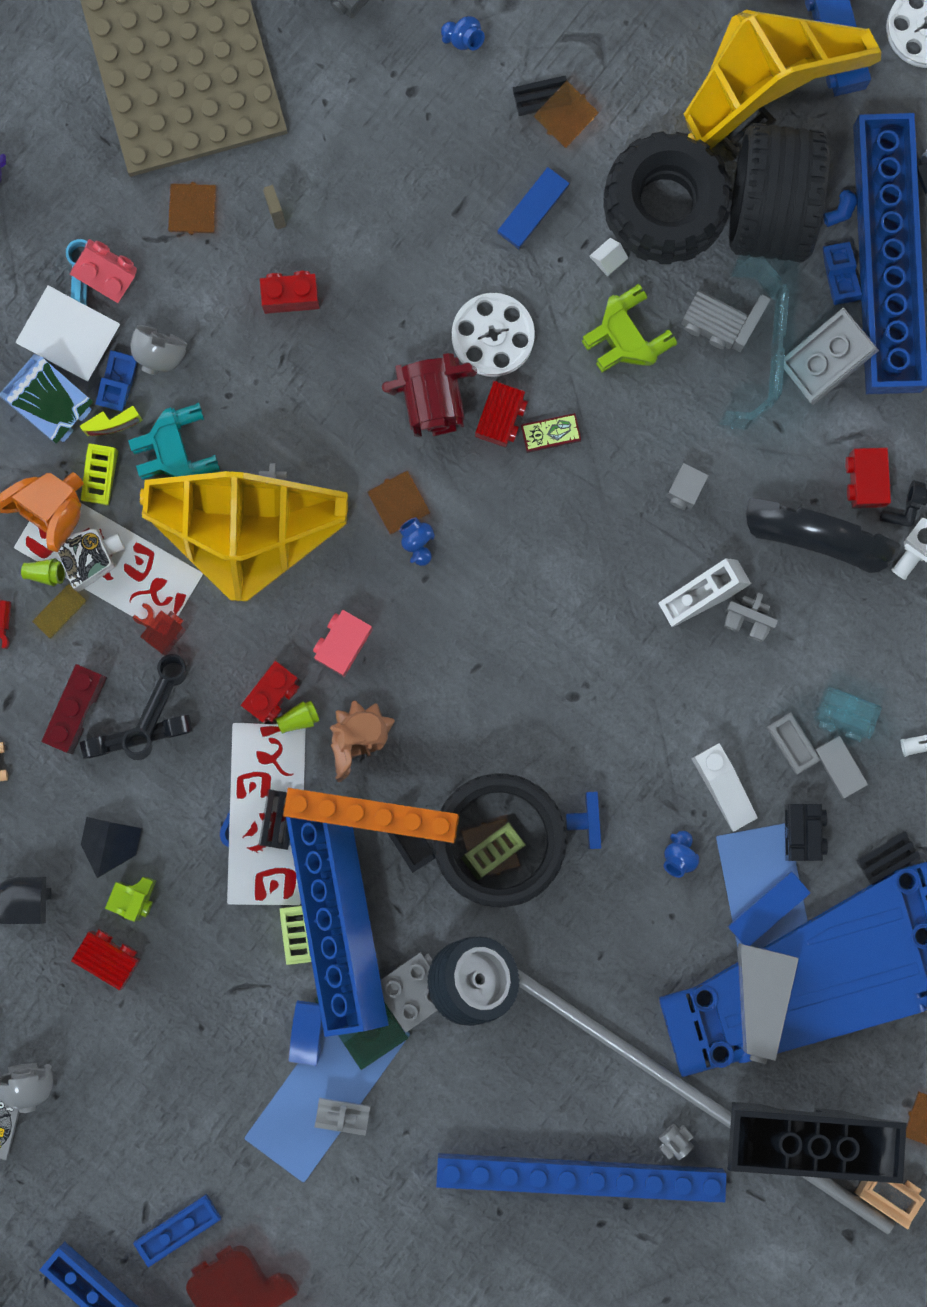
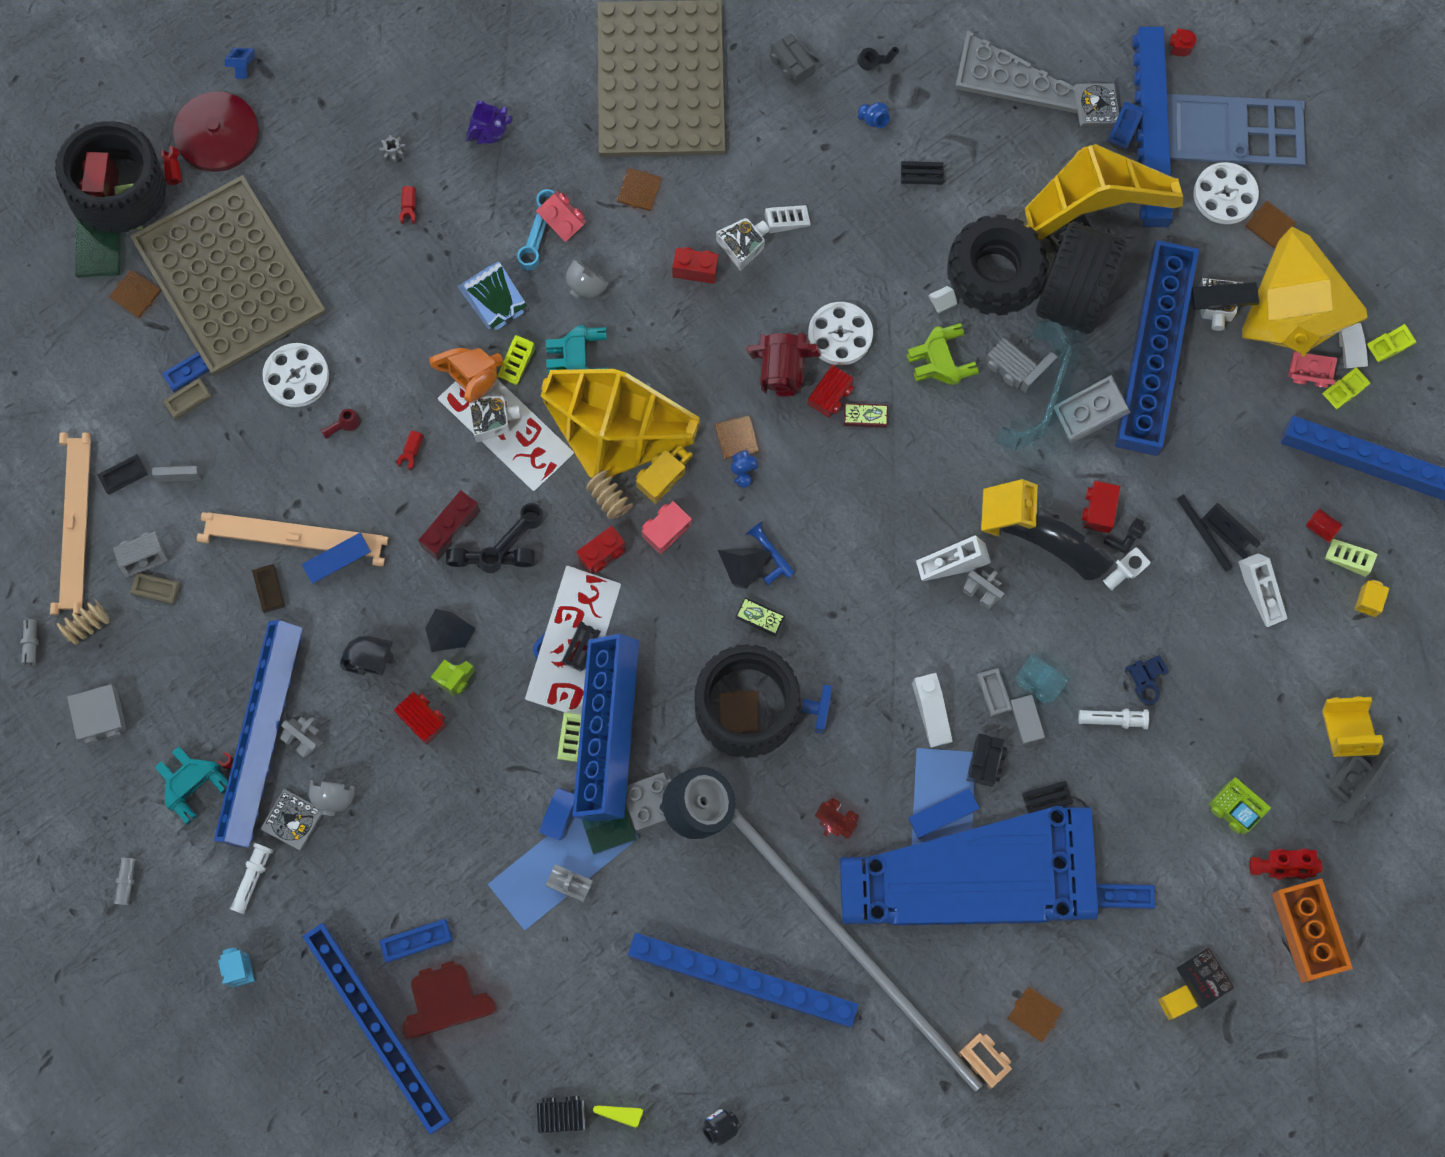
camera: 15 degrees right, 10 degrees down
(46, 571) = (456, 420): lime cone -> none
(59, 611) = (458, 452): clear yellow piece -> none
(67, 333) = (522, 253): white sticker -> none
(103, 425) = (529, 326): neon yellow slope -> none
(117, 381) = (549, 297): blue slope -> none
(162, 630) = (531, 484): clear red brick -> none
(260, 621) = (607, 496): none -> tan piece
(274, 207) = (700, 201): dark tan tile -> none
(298, 717) = (617, 575): lime cone -> none
(320, 573) = (663, 473): none -> yellow brick
(340, 245) = (742, 241): none -> torso
(357, 734) = (659, 599): nougat head -> none
(371, 815) = (654, 651): orange plate -> none
(384, 212) = (789, 225): none -> white slope
(413, 850) = (677, 688): black panel -> none
(449, 663) = (743, 564): none -> black slope
(475, 867) = (722, 719): yellowish green slope -> none
(486, 723) = (760, 616): none -> tile
(498, 653) = (783, 566): none -> blue piece
(533, 208) = (894, 250): blue tile -> none
(566, 114) = (936, 189): clear orange piece -> none
(640, 956) = (835, 821): none -> clear red hips
(676, 1142) = (825, 972): light grey gear -> none
(679, 856) = (884, 753): blue animal -> none
(686, 487) = (959, 479): light grey brick -> none
(758, 510) = (1009, 505): none -> yellow panel
(764, 997) = (923, 870): light grey slope -> none
(815, 1144) = (931, 987): black piece -> none
(841, 273) = (1117, 354): blue slope -> none
(844, 211) = (1130, 309): blue arm -> none

